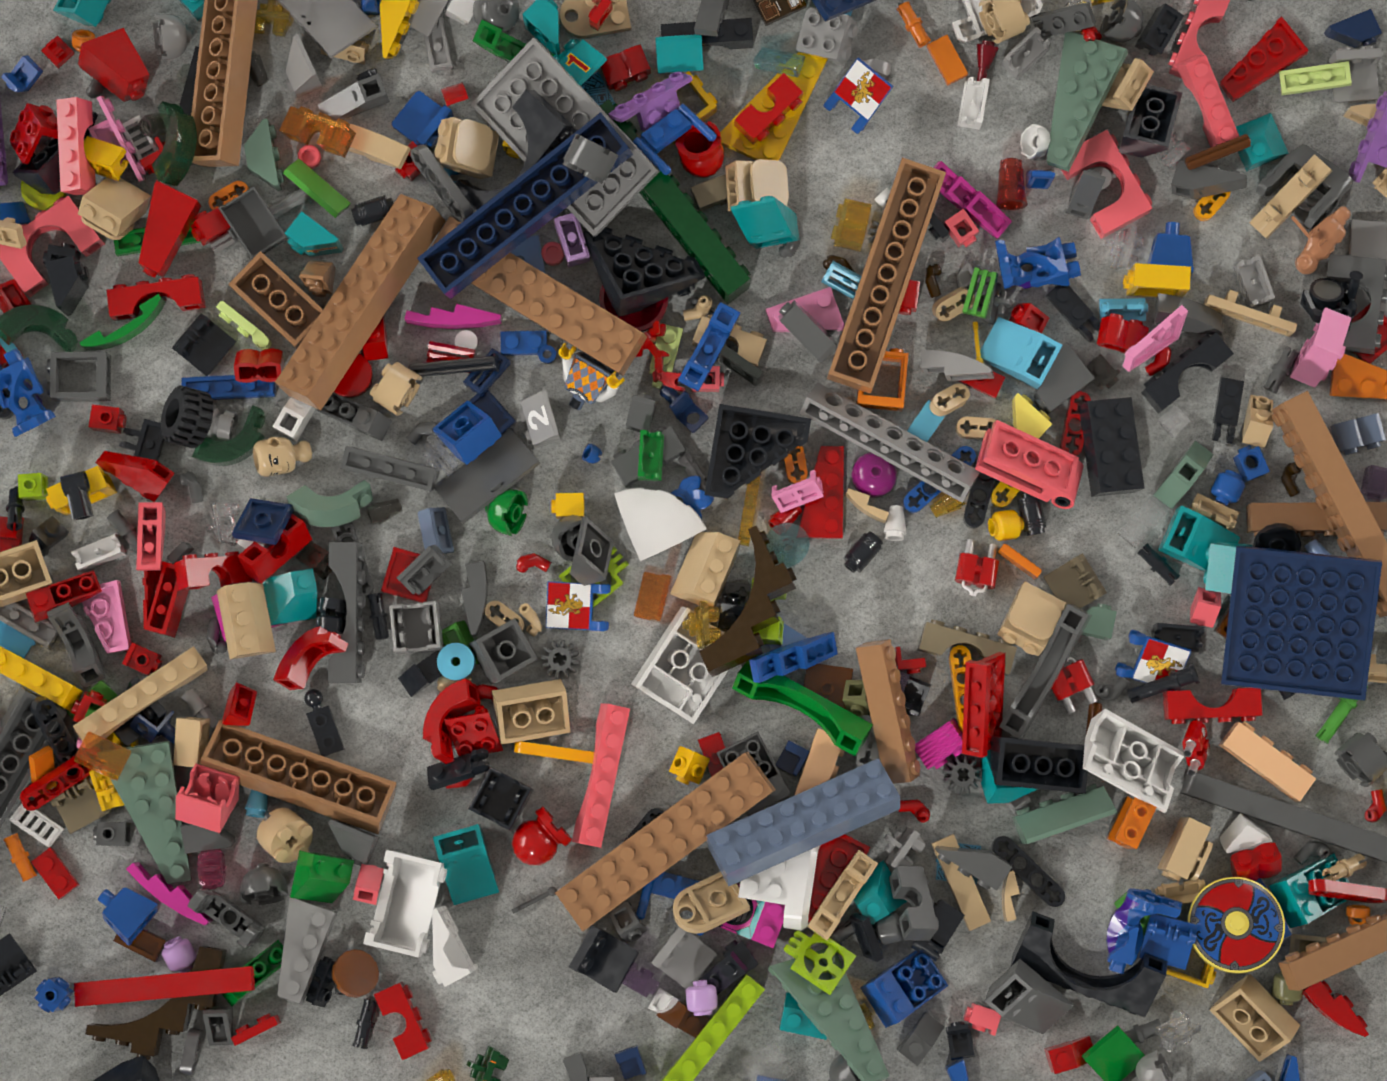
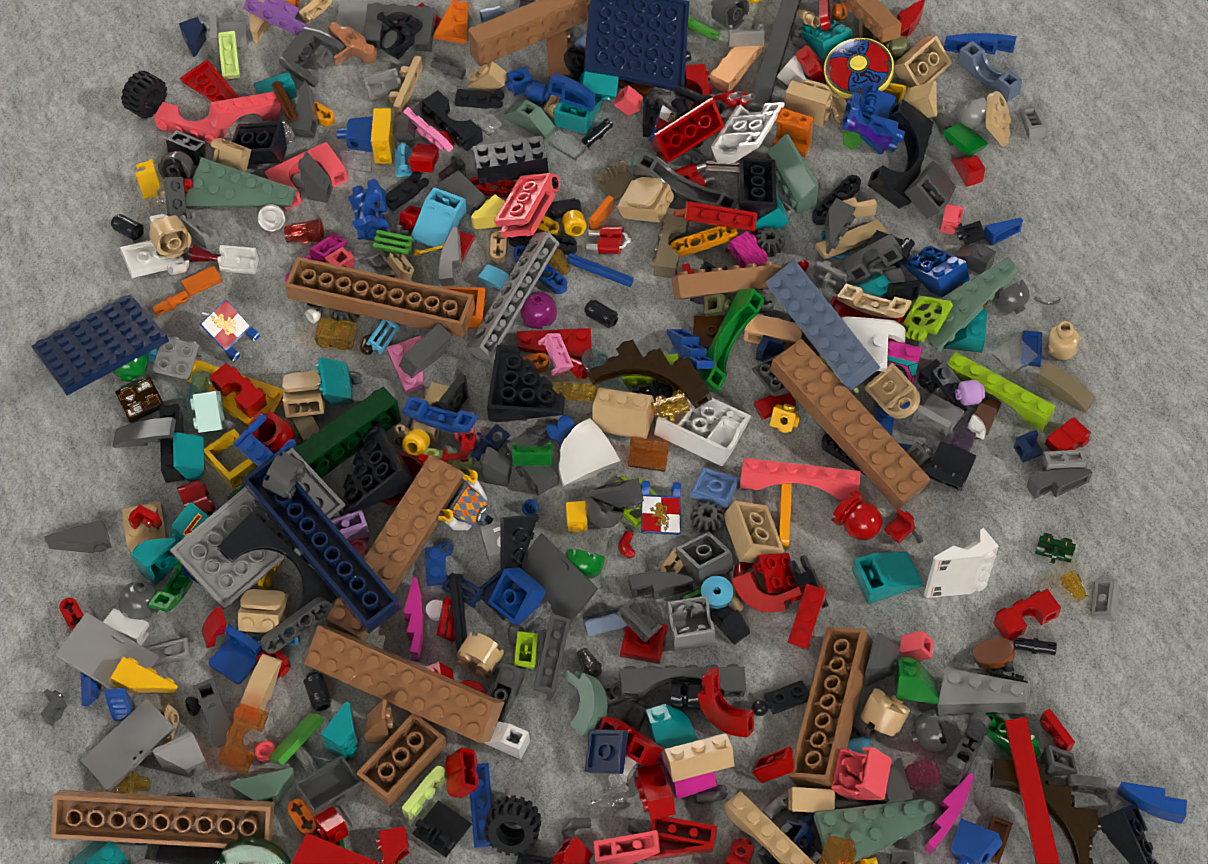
camera: 90 degrees left, 25 degrees down
(179, 954) = (1002, 800): lavender head -> none
(234, 450) = (536, 783): clear green arch -> none
(279, 456) = (544, 749): tan piece -> none
(378, 616) = (683, 660): black axle -> none
(396, 439) = (525, 649): none -> lime slope
(406, 904) = (938, 613): white windscreen -> none
(411, 762) = (807, 616): none -> red arch
(501, 799) = (830, 547): black piece -> none
(529, 430) = (515, 539): none -> black wing
(530, 888) = (900, 526): none -> red bracket
(531, 616) = (675, 541): tan arm -> none
(601, 672) = (715, 487): none -> medium blue plate
(654, 103) = (229, 463): medium lavender bracket -> none
(679, 319) = (416, 442): none -> yellow head
(736, 75) = (208, 411): none -> light aqua piece
(861, 500) = (562, 314): tan slope -> none
(895, 524) = (577, 294): white cone -> none
(933, 555) = (600, 270): none -> blue axle
(952, 403) = (478, 260): tan beam -> none
(1039, 179) = (300, 212): blue slope -> none
(1131, 680) = (687, 131): none -> red slope
(1176, 1003) = (923, 98): none -> tan slope
(1186, 710) = (698, 98): none -> black pin
(1209, 528) = (571, 92): none -> blue slope
(1288, 478) = (529, 62): dark brown arm -> none
(1290, 196) = (319, 62): tan hinge -> none
(1300, 774) = (746, 37): none -> light grey hinge
(1322, 350) = (435, 34): bright pink wedge -> none
(1377, 808) = (763, 6): red arm -> none

